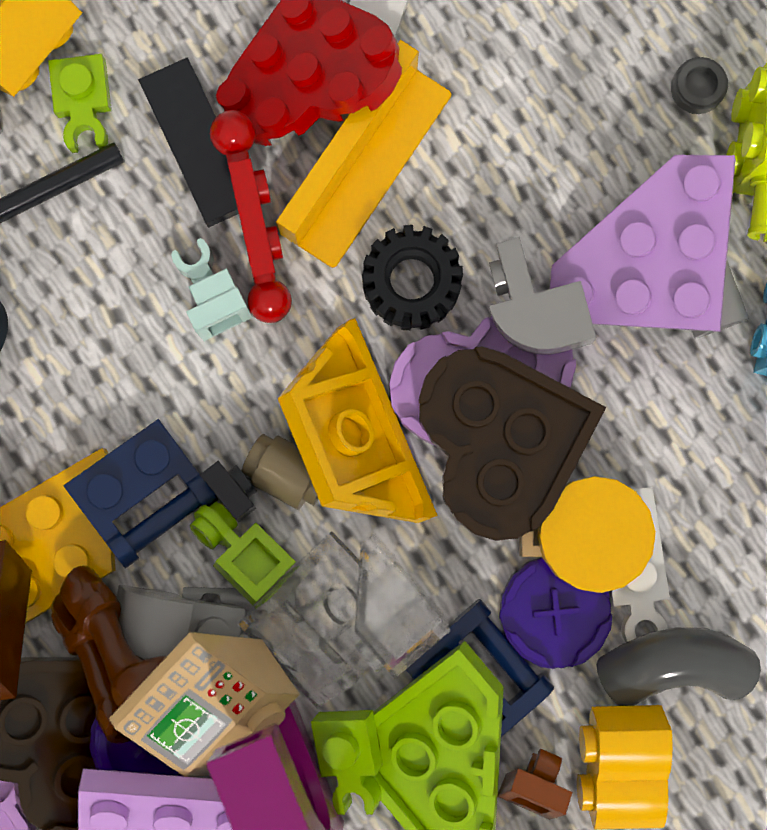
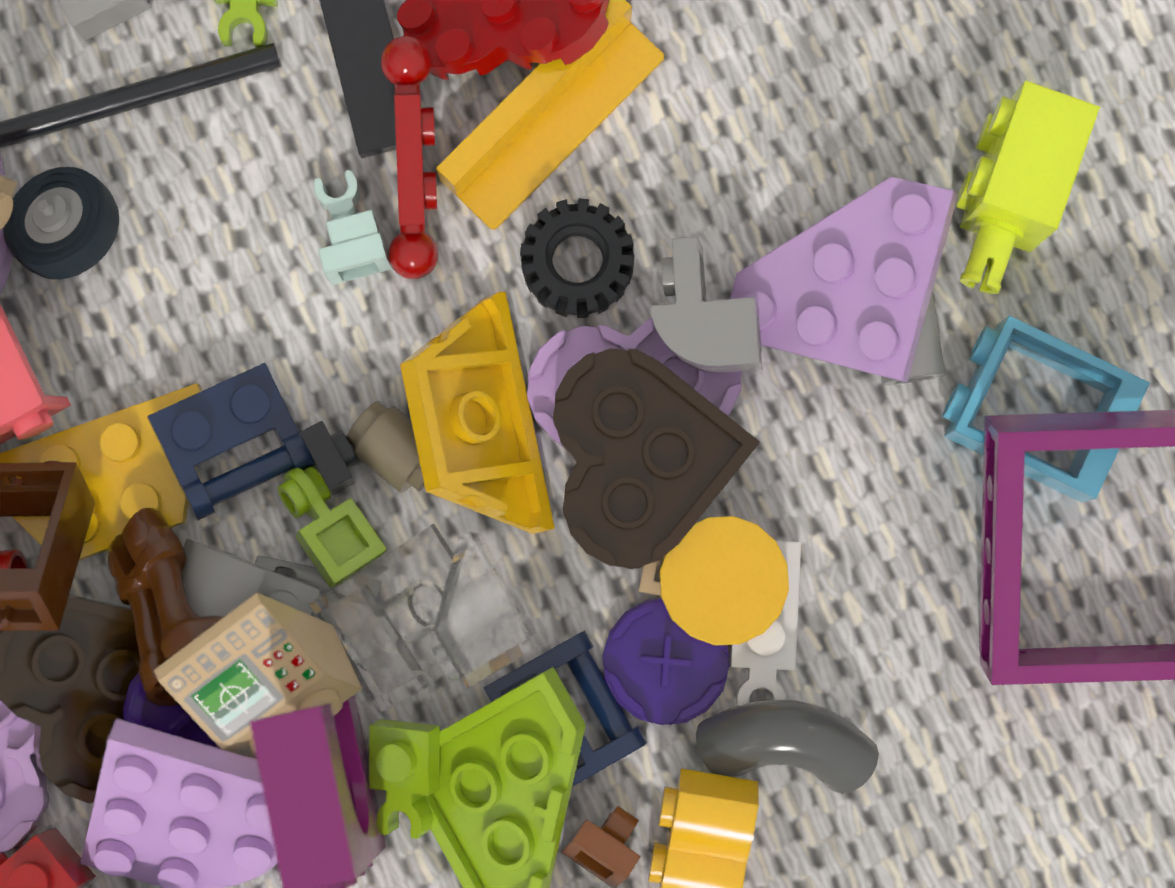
camera: 15 degrees right, 0 degrees up
(699, 85) = (947, 99): dark grey tile -> none

